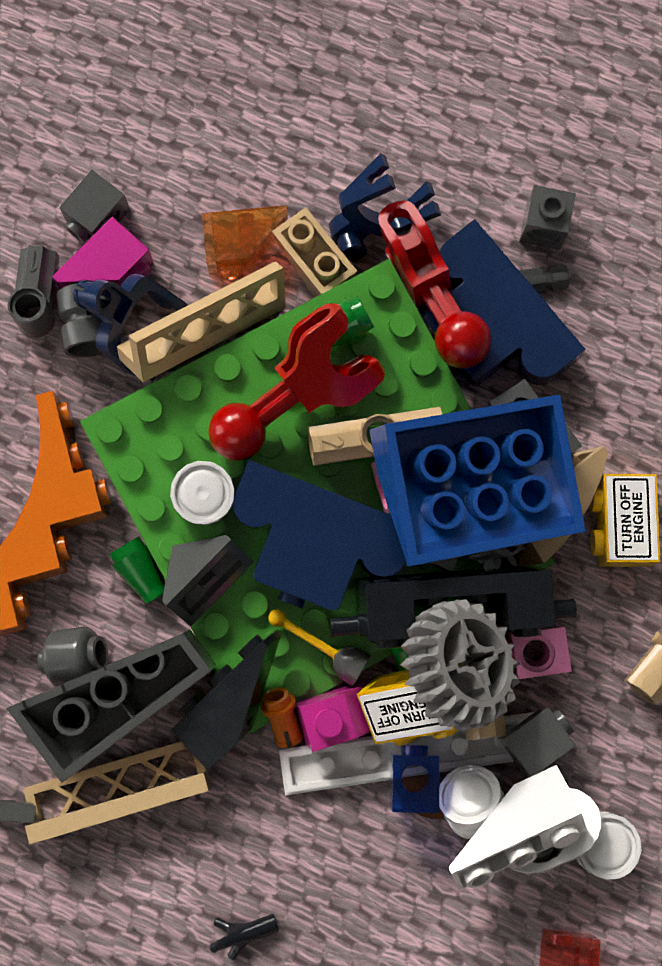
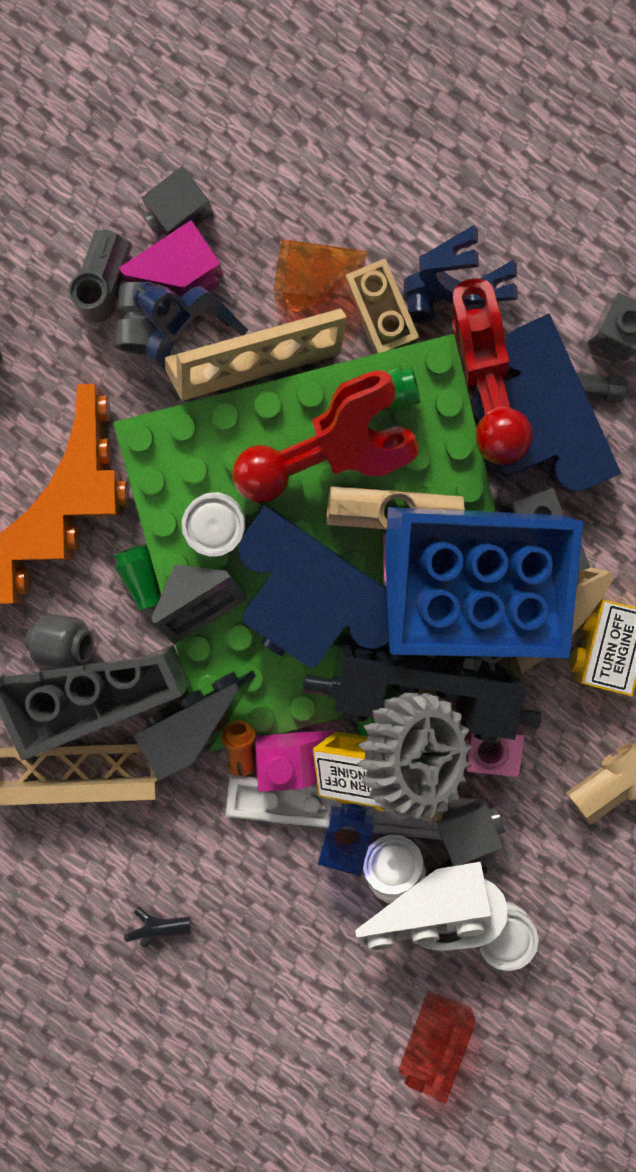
camera: 15 degrees right, 10 degrees up
(347, 661) = (313, 713): hinge -> none

